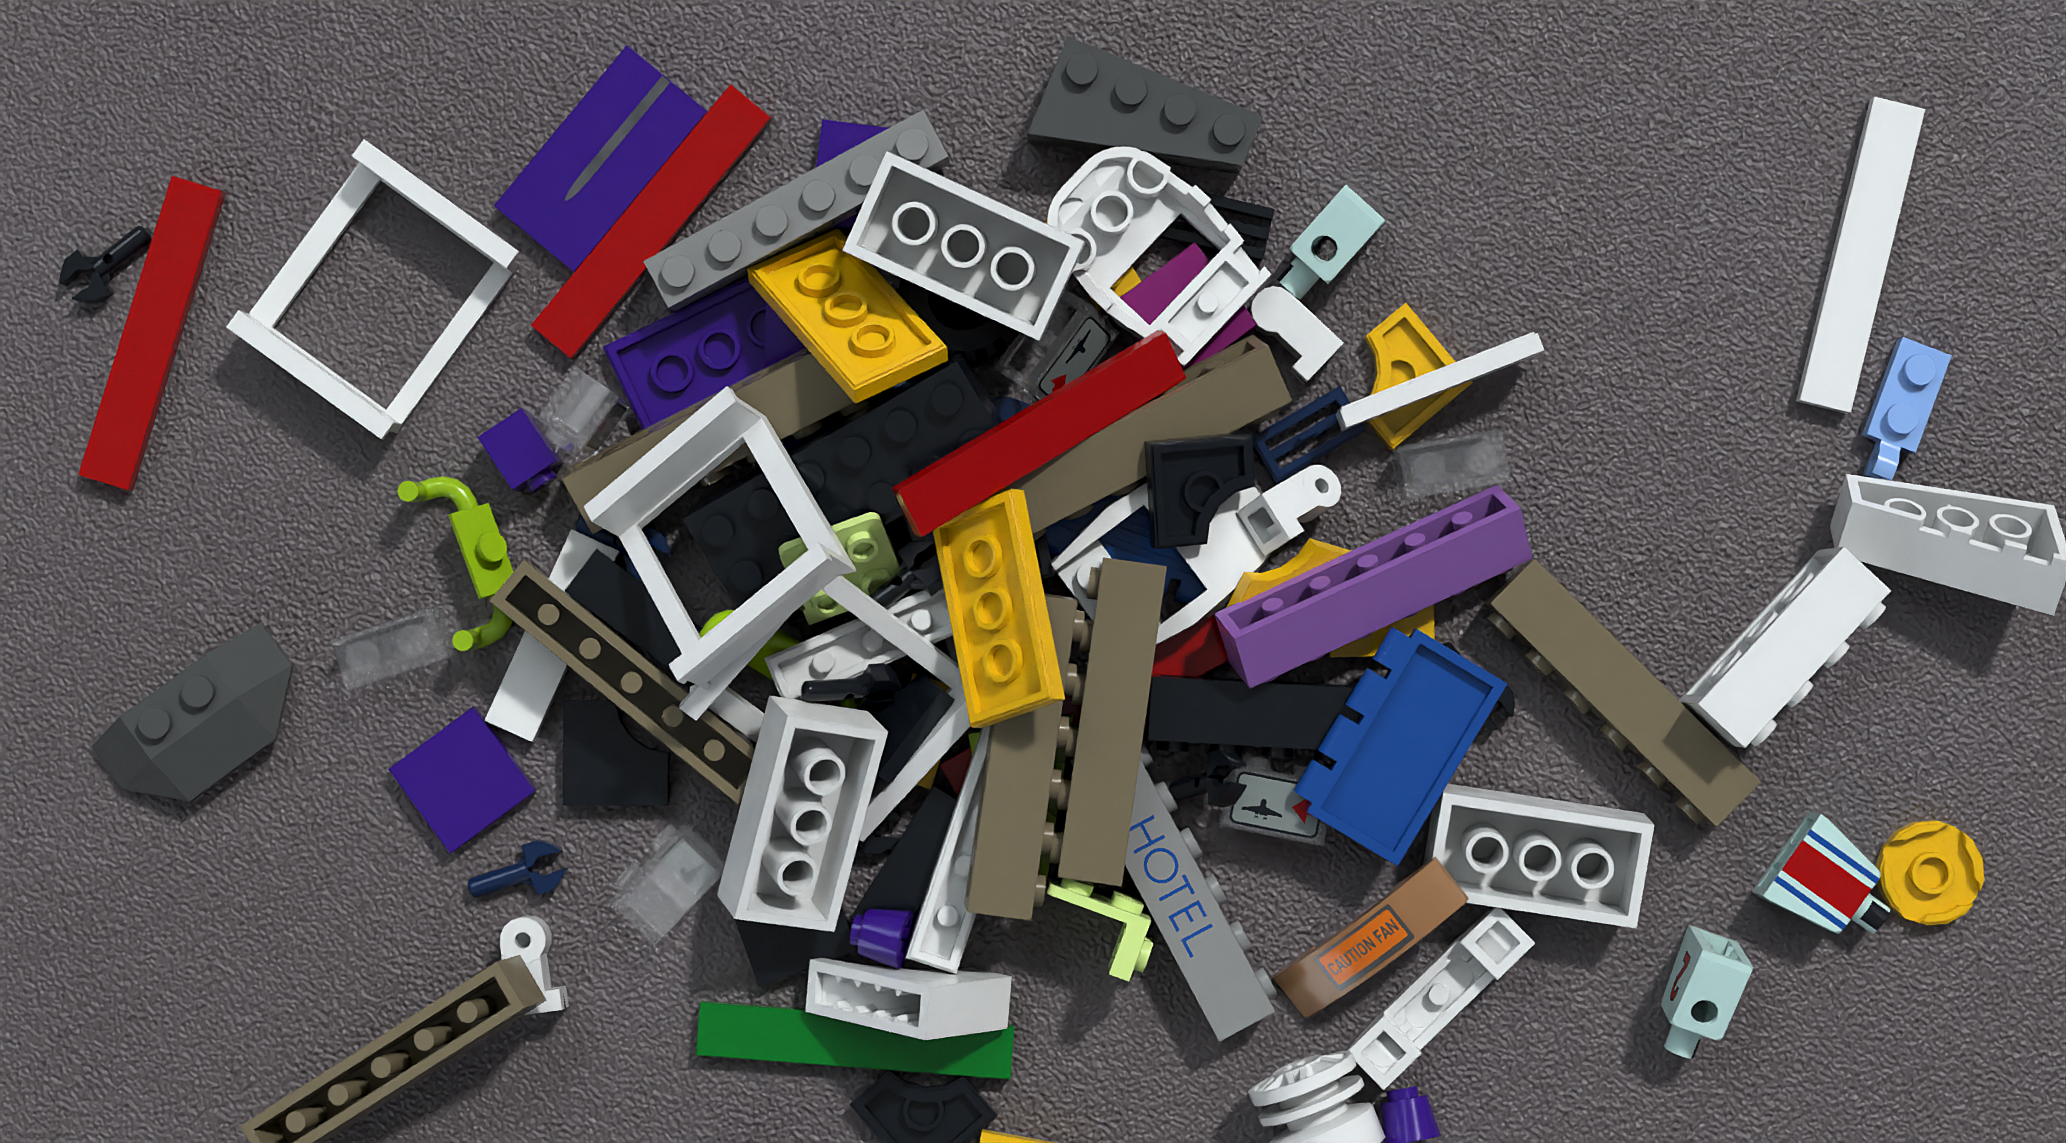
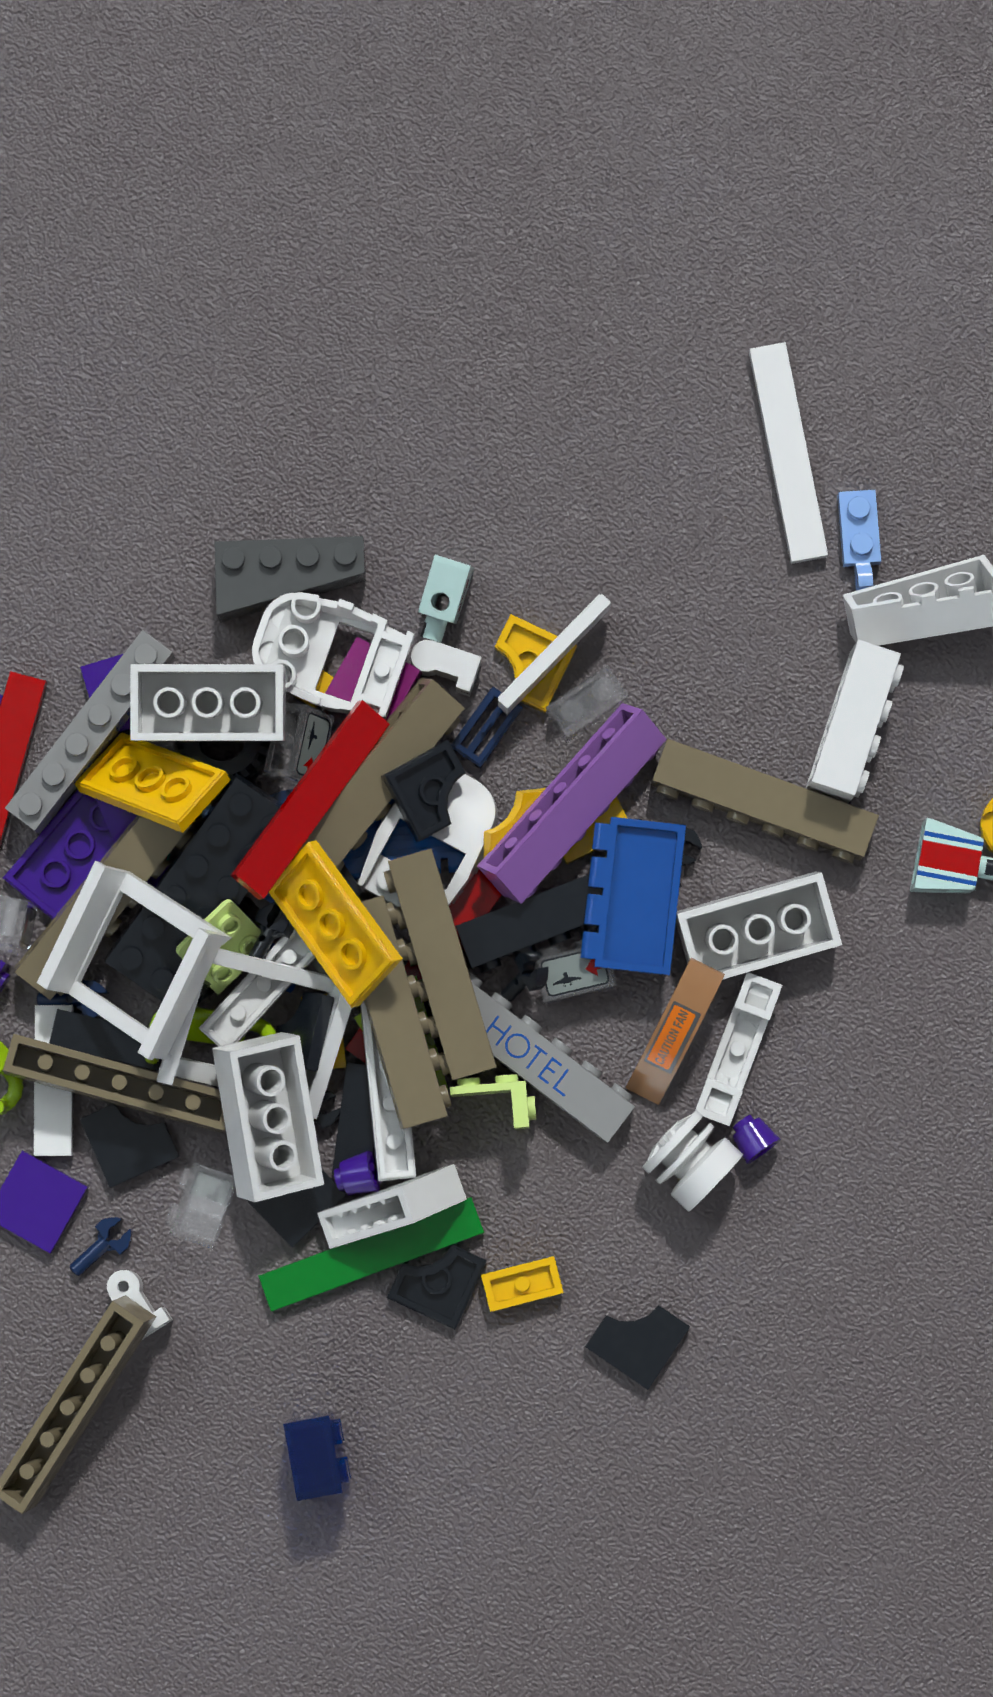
camera: 25 degrees left, 5 degrees down
(869, 691) = (276, 1018): black bar -> none
(1260, 232) = (371, 603): black tile -> none
(1276, 513) = (491, 779): white leg -> none
(1709, 972) = (902, 951): light aqua torso -> none

